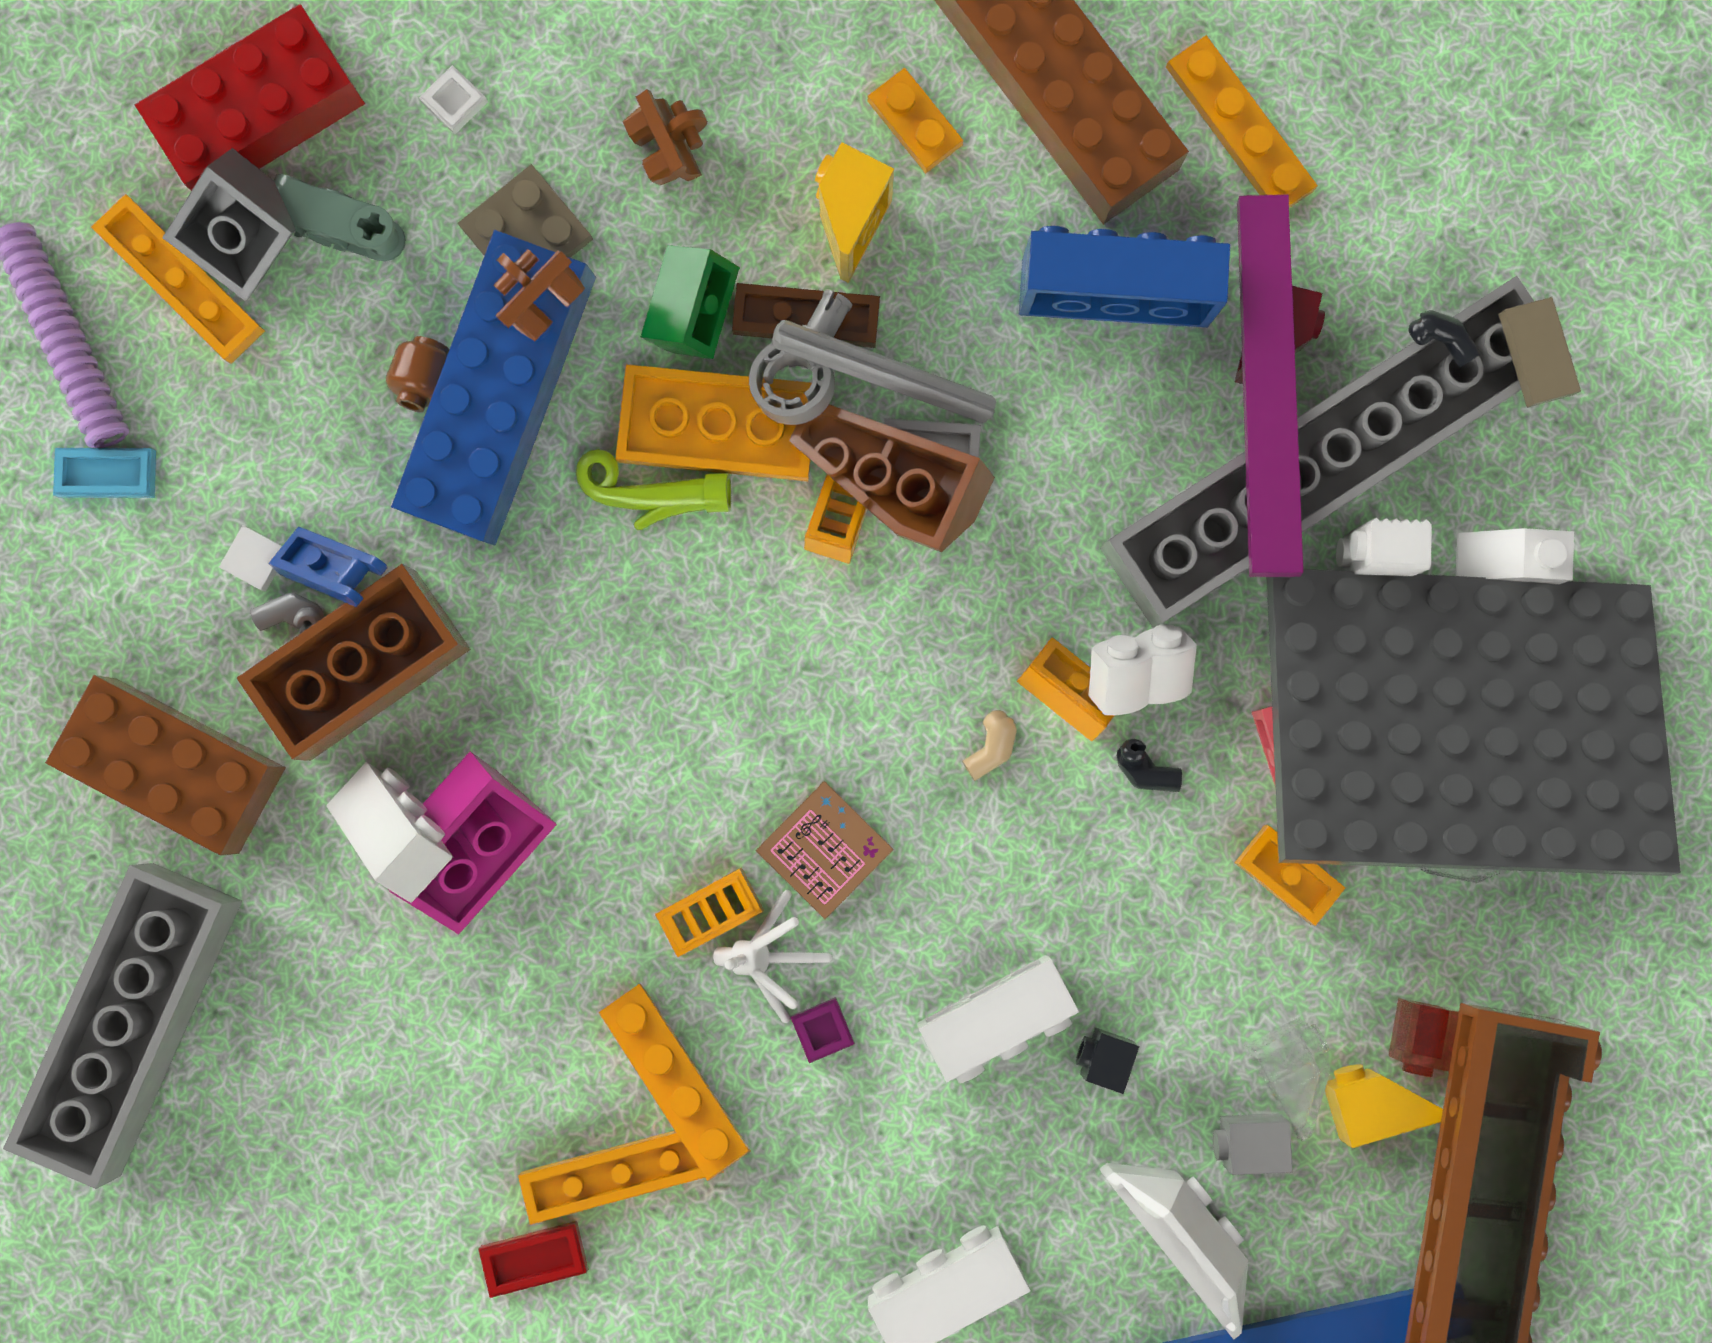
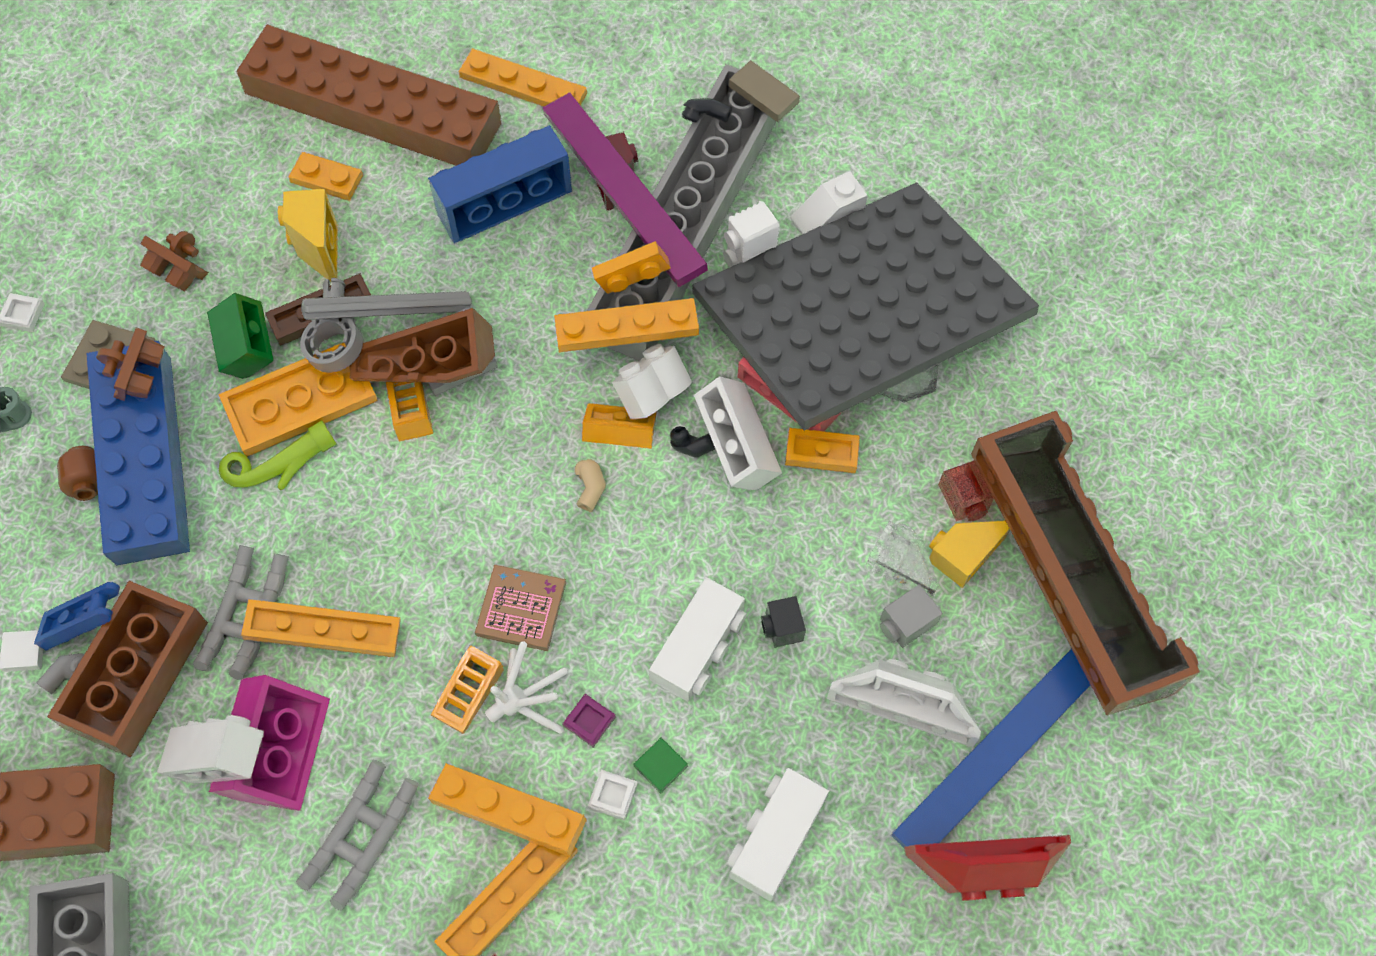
camera: 30 degrees left, 20 degrees down
(475, 998) = (336, 841): none -> light grey piece
(484, 664) = (237, 592): none -> light grey piece
(588, 742) = (321, 628): none -> light orange plate
(798, 1130) = (612, 794): none -> white tile
(869, 1131) = (660, 765): none -> green tile
(1155, 586) = (626, 325): none -> light orange plate
(1201, 798) = (737, 434): none -> white brick
(1225, 529) = (631, 267): none -> light orange plate

